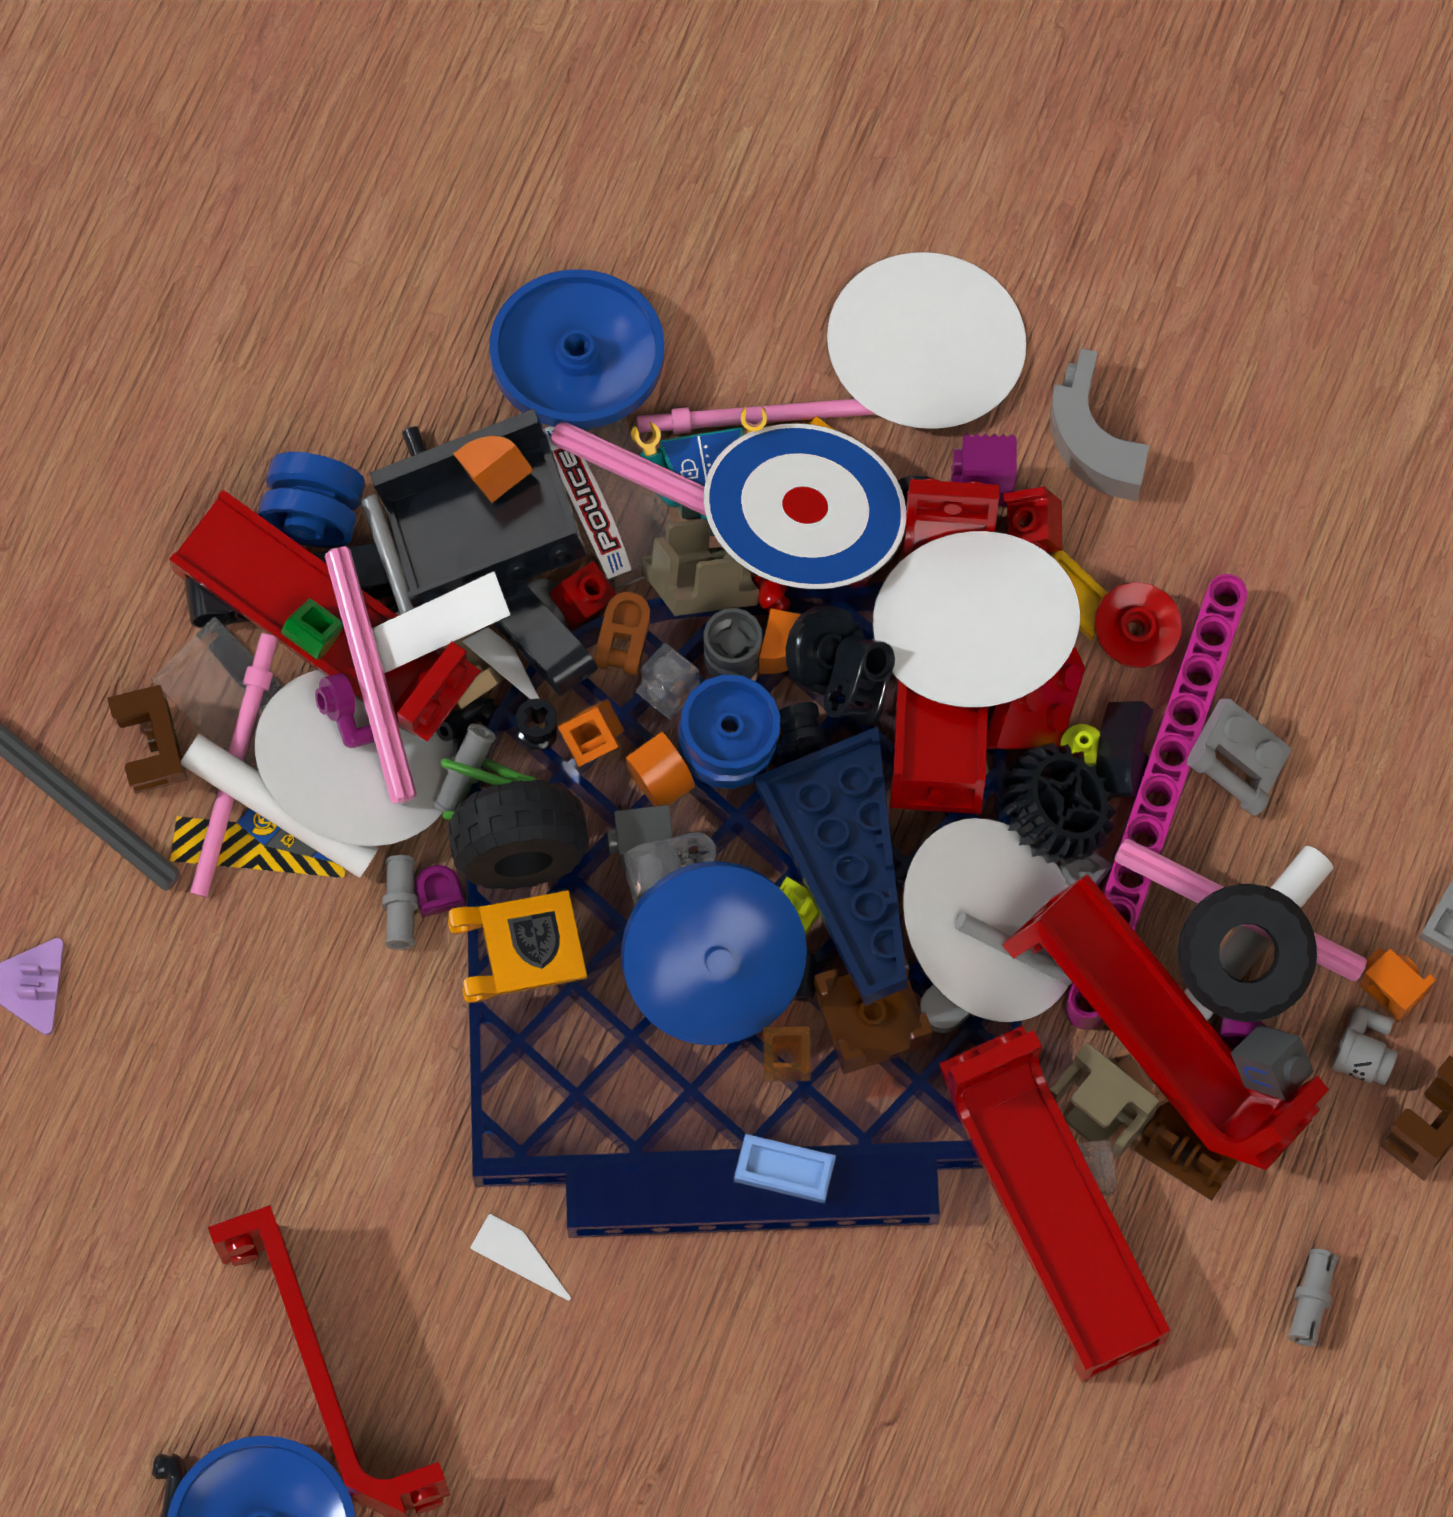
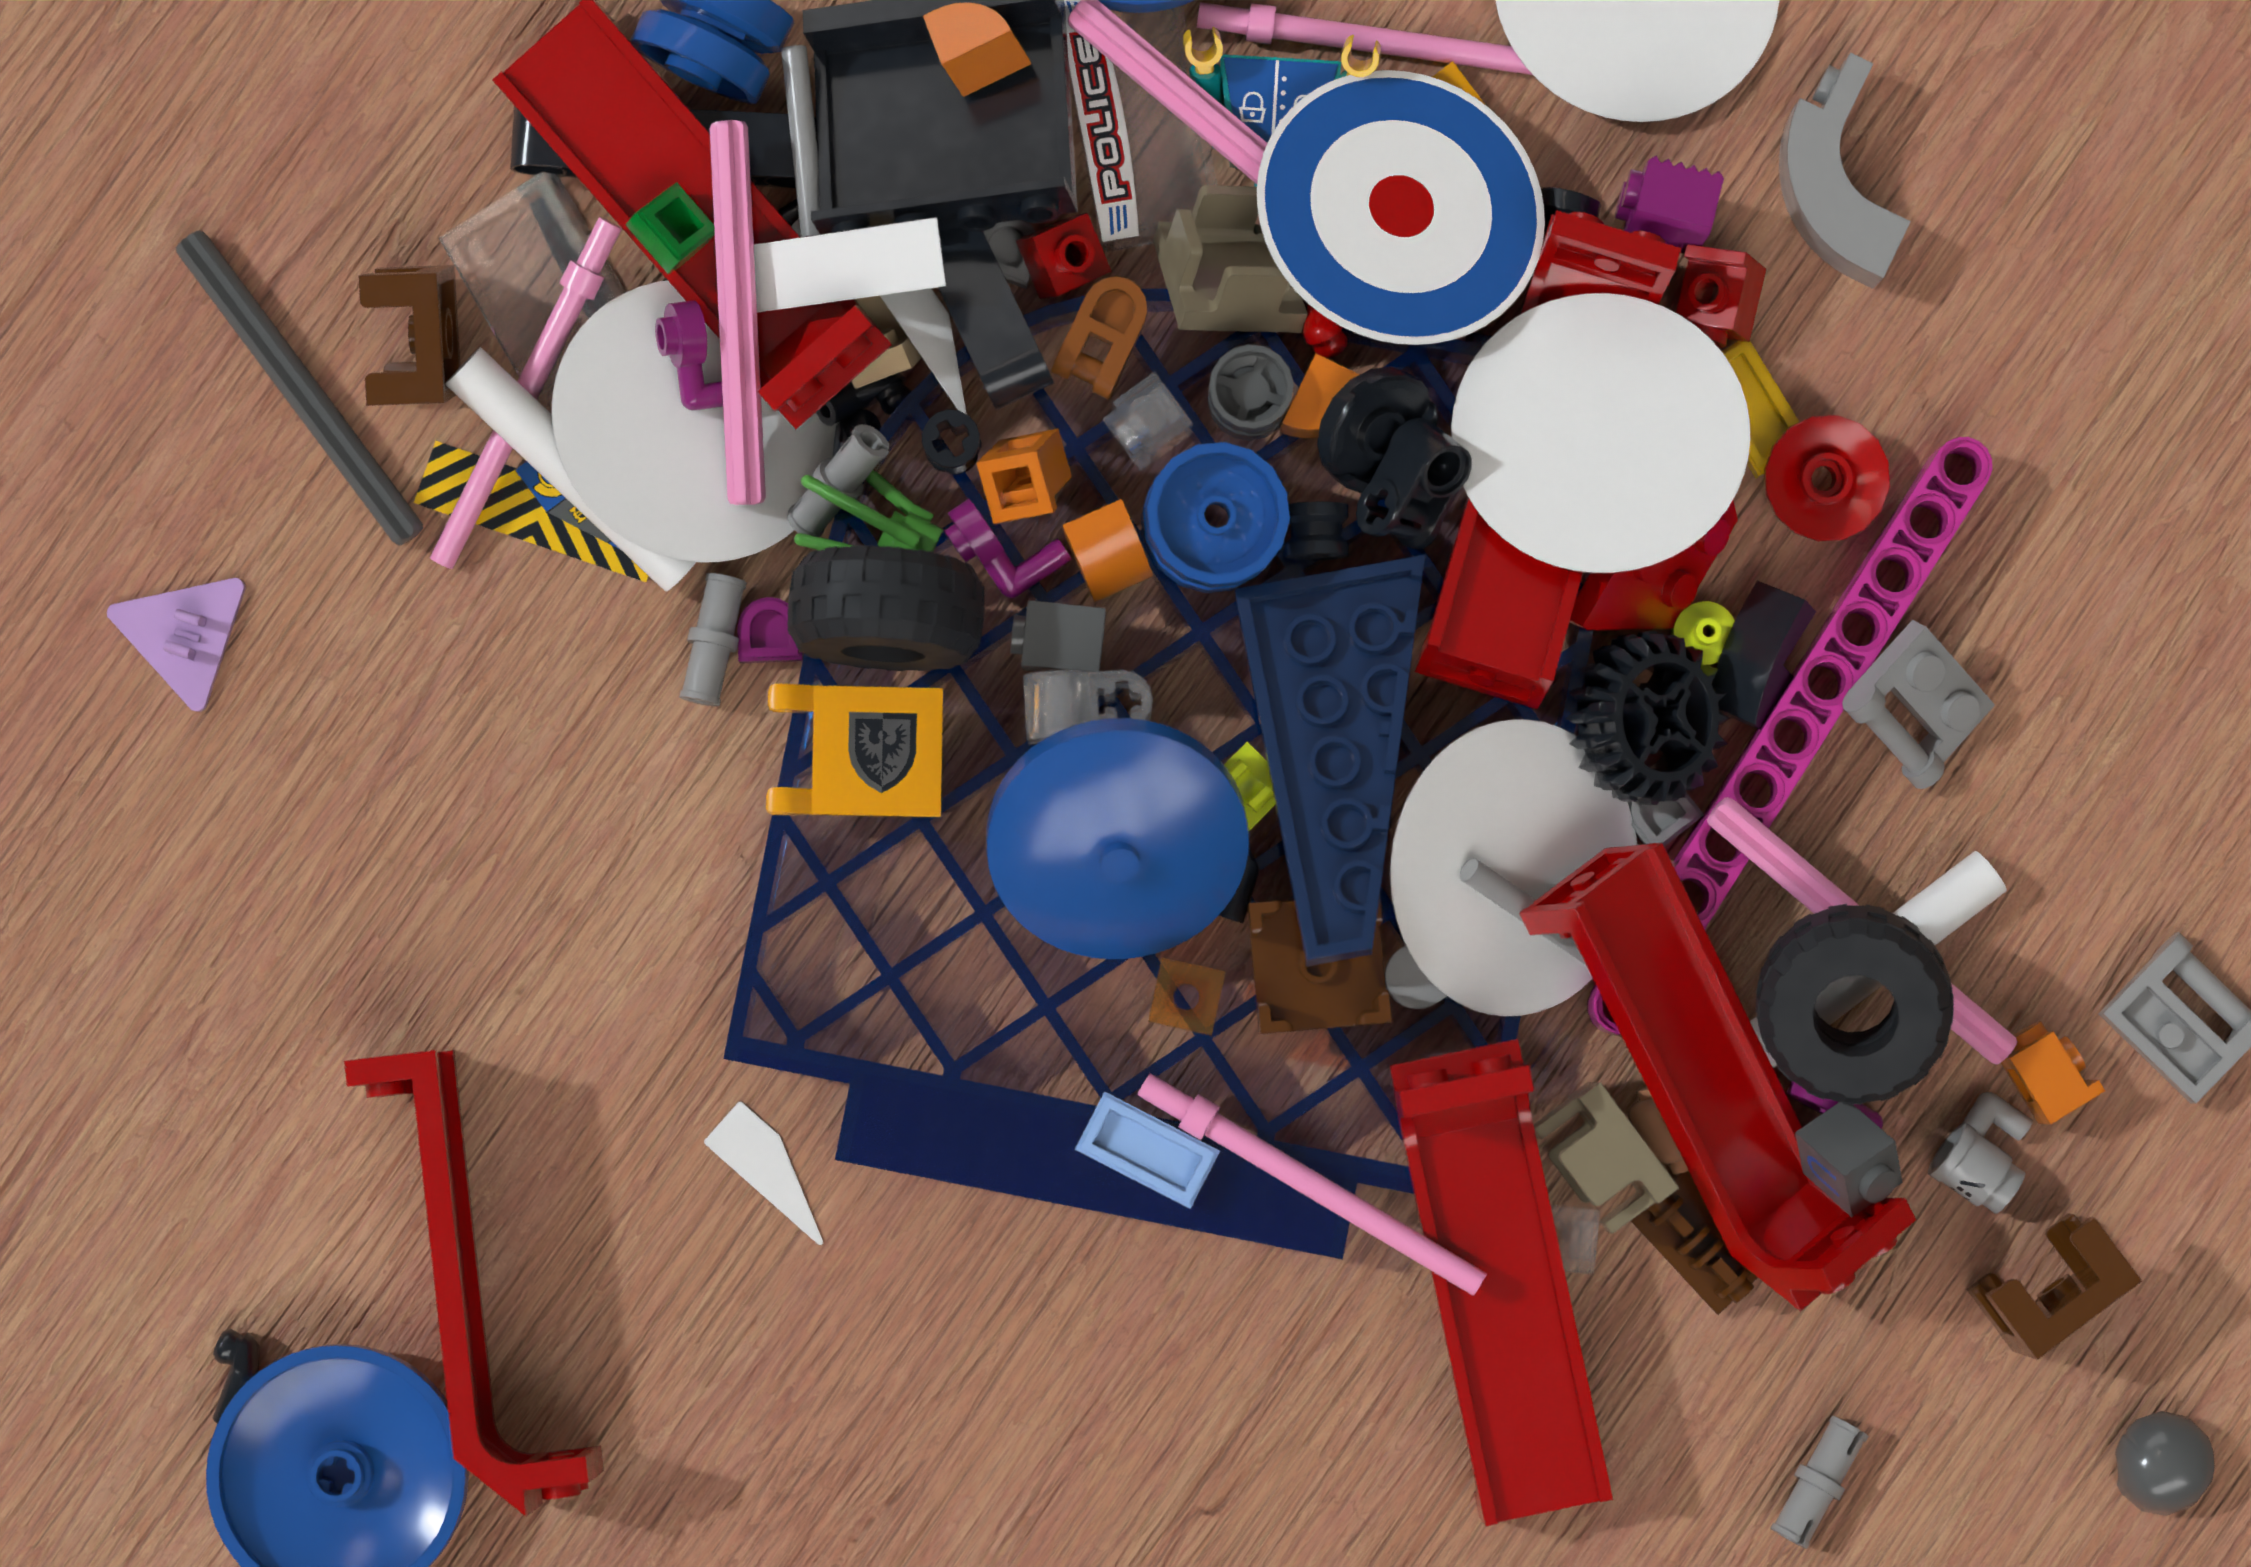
camera: 15 degrees right, 15 degrees up
(599, 809) = (974, 538): none -> magenta plate
(817, 1136) = (1201, 1119): none -> bright pink bar

